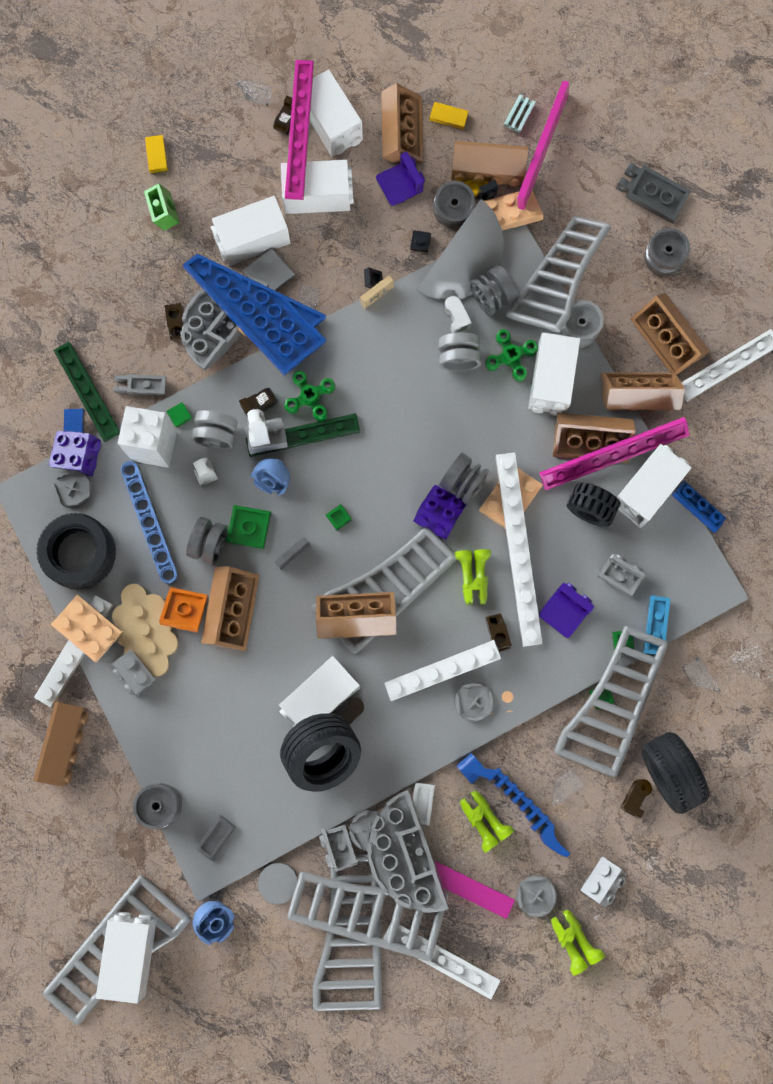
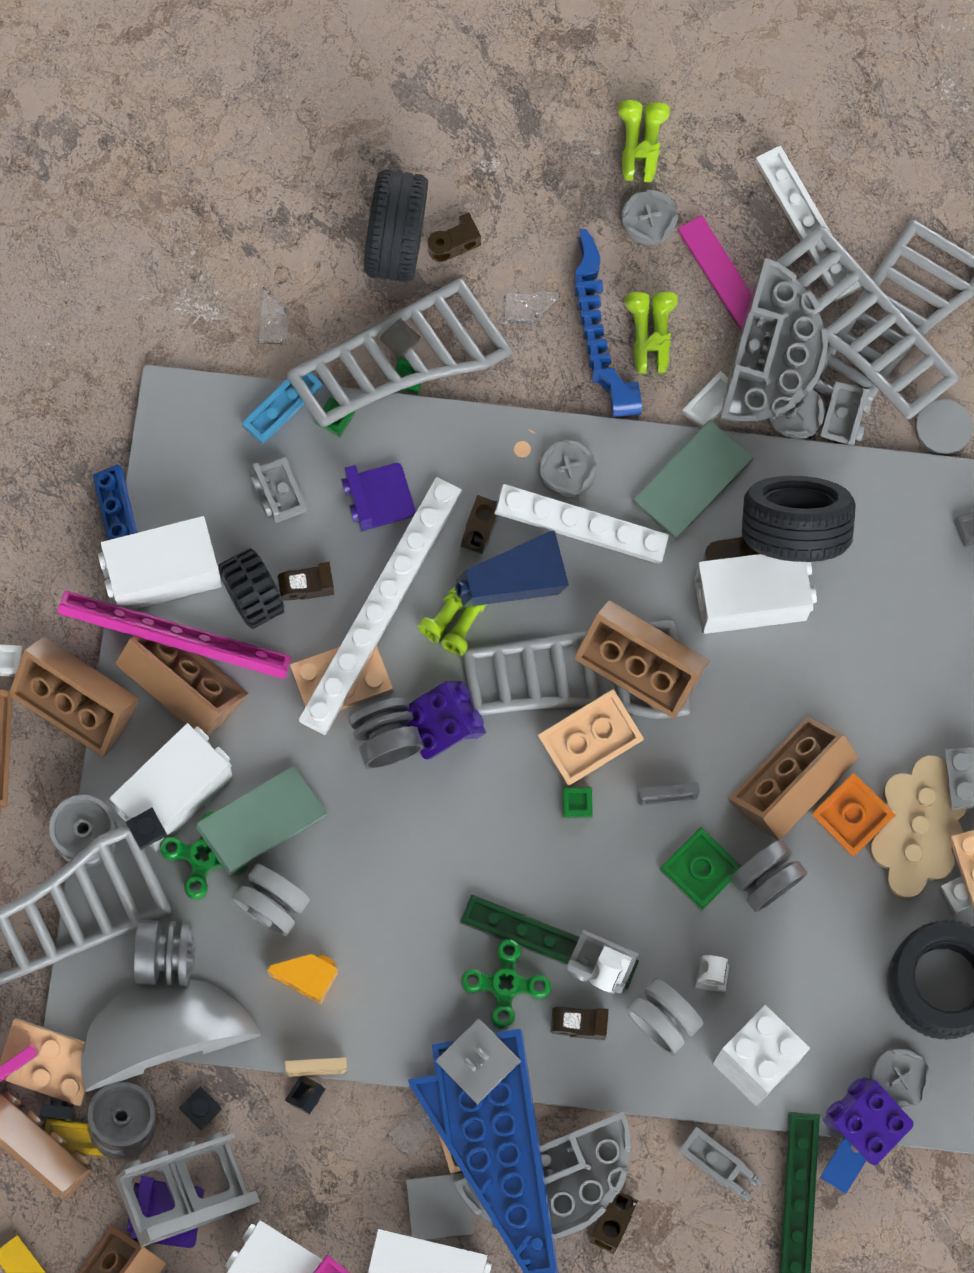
camera: 150 degrees left, 5 degrees down
(142, 516) = (833, 948): medium blue beam -> none
(179, 414) = (695, 1082): green tile -> none
(271, 476) = (627, 908): medium blue cylinder -> none
(295, 344) = (478, 1061): none -> light grey piece
(354, 554) = (590, 737): none -> light nougat plate
(387, 185) = (188, 1209): none -> light grey window
(399, 745) = (693, 480): none -> sand green tile
(414, 331) = (307, 975): none -> light orange slope
(457, 615) = (517, 574): none -> dark blue slope
(458, 314) = (231, 960): white leg -> none
(495, 391) = (261, 820): none -> sand green tile
(548, 334) = (146, 828): none -> black plate
(566, 535) = (306, 583): none -> dark brown leg
(604, 882) = (561, 179): bracket -> none
(622, 710) = (400, 338): none -> clear smoke tile

